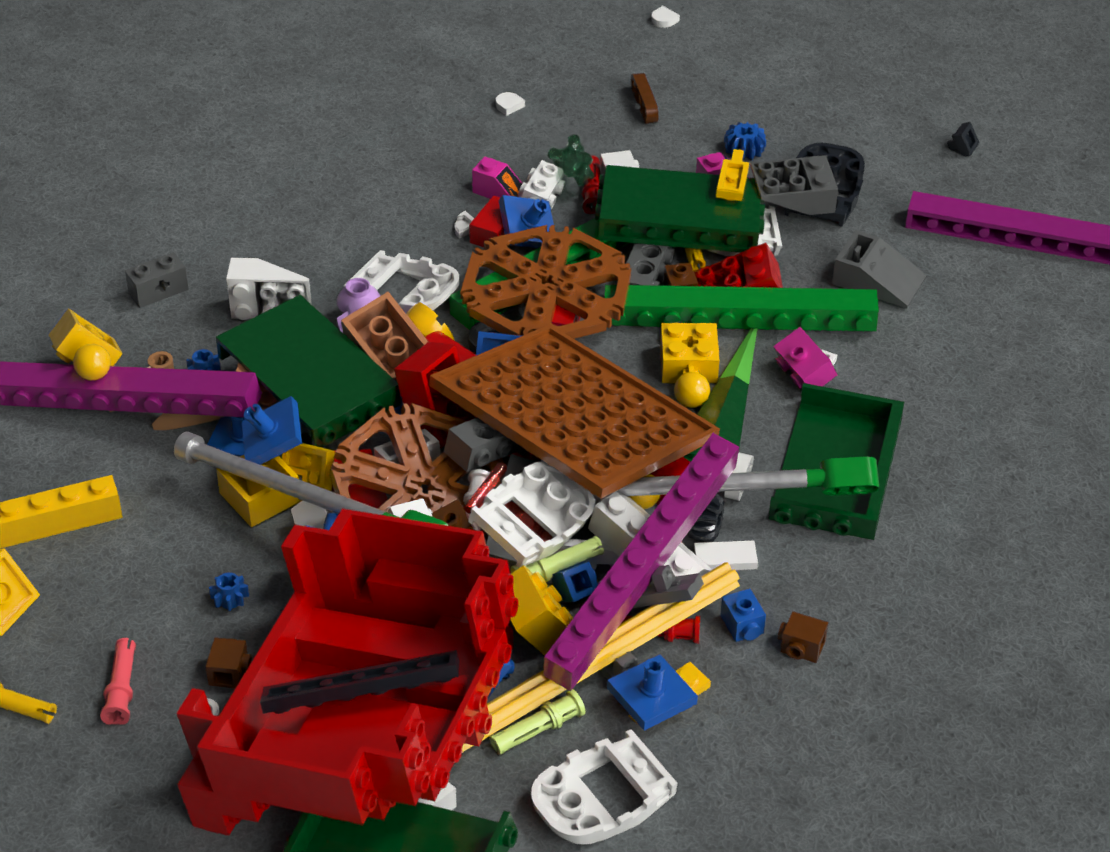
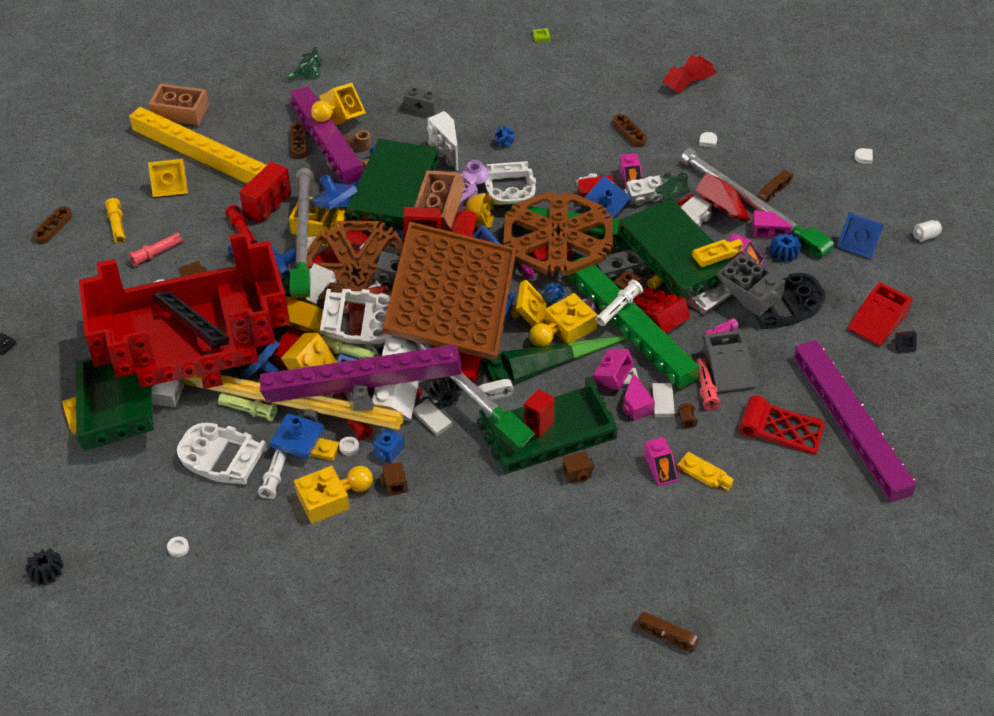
camera: 55 degrees right, 5 degrees up
(70, 422) = (298, 136): none -> reddish brown beam
(159, 126) = (541, 35): none -> lime tile
(160, 504) = (265, 192): none -> red brick
(168, 566) = (238, 221): none -> red pin
(306, 241) = (504, 136): none -> blue gear
(390, 53) = (694, 69): none -> red arch
(397, 148) = (623, 123): none -> reddish brown beam
(627, 133) = (722, 196): none -> slope
(632, 345) = (553, 293): none -> blue gear
(640, 369) = (529, 304): none -> yellow tile
(692, 758) = (272, 477): none -> white pin
(699, 133) = (768, 224): none -> dark pink slope
(702, 656) = (349, 446): none -> white tile
(718, 286) = (624, 298): none -> white pin
(765, 114) = (810, 239): none -> piece
(772, 708) = (325, 494): none -> yellow brick
(791, 80) = (860, 235): none -> blue tile
(817, 253) = (724, 327): none -> dark pink axle
(824, 39) = (927, 230): none -> white brick
(828, 440) = (539, 412): none -> red brick
(864, 368) = (637, 400): none -> dark pink slope
(880, 352) = (663, 399): none -> white tile
(904, 310) = (711, 396): none -> coral pin
(913, 131) = (880, 314): none -> red slope
(924, 345) = (687, 416): none -> reddish brown bush
(927, 470) = (577, 467): none -> reddish brown brick
(975, 399) = (660, 461): none -> slope
(979, 299) = (755, 421): none -> red piece
(1014, 377) = (704, 471): none -> yellow hinge

